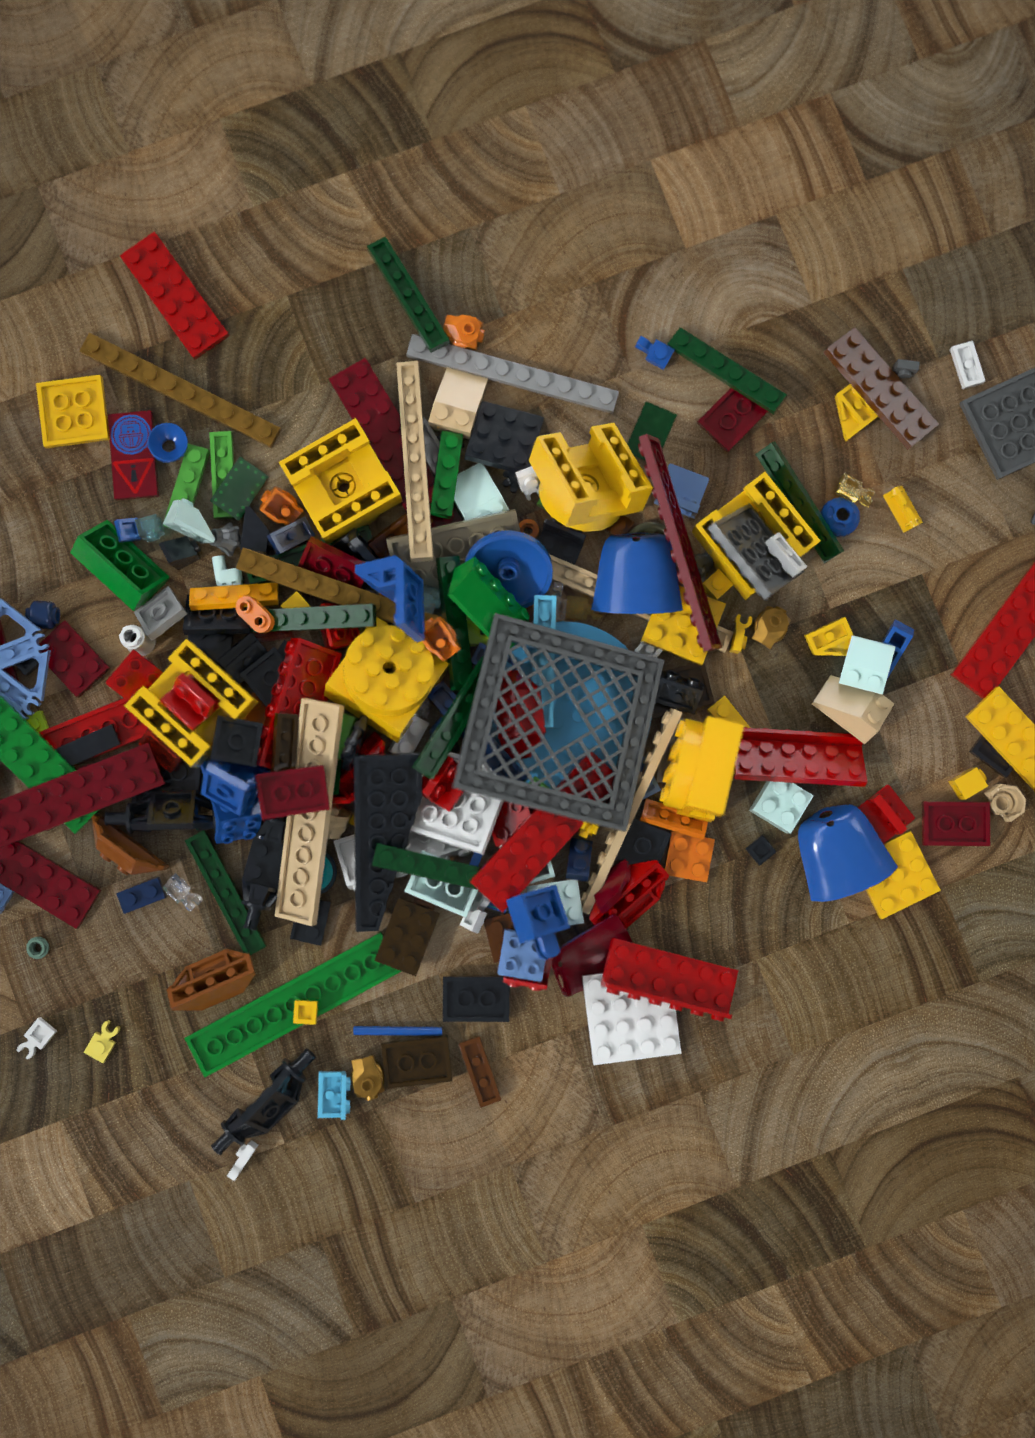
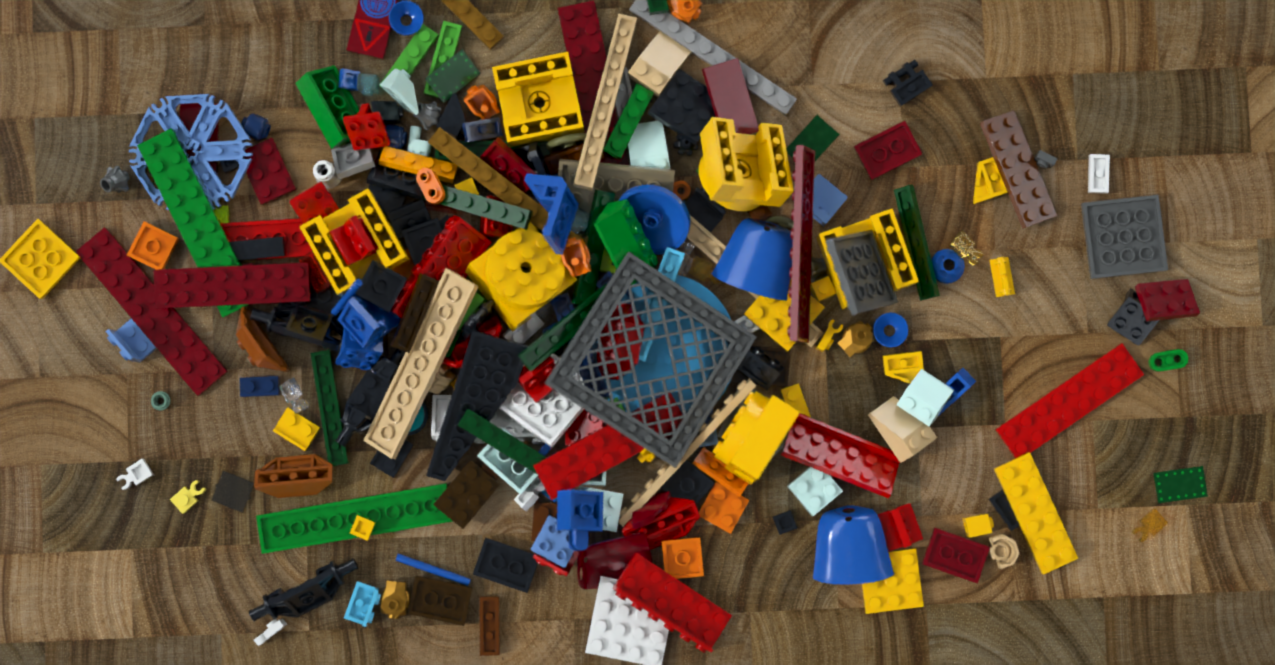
camera: 25 degrees right, 0 degrees up
(150, 1020) = (233, 491): none -> clear smoke piece
(164, 576) = (366, 129): none -> red bracket
(196, 575) = (396, 136): none -> dark blue head
(197, 928) = (296, 429): none -> yellow plate
(204, 762) = (346, 297): none -> blue bar
(292, 792) = (412, 343): dark red plate -> none
(386, 518) = (566, 141): none -> olive plate
(528, 481) = (693, 150): white plate -> none
(546, 408) = (730, 95): none -> dark red tile
(579, 859) = (630, 478): dark blue plate -> none
(657, 353) = (841, 77): blue plate -> none
(664, 925) = (683, 557): none -> orange plate
(727, 371) = (893, 112): dark green plate -> none
(736, 339) = (911, 87): none -> black plate
(785, 554) = (885, 283): white plate -> none
(813, 599) = (899, 325): none -> blue piece

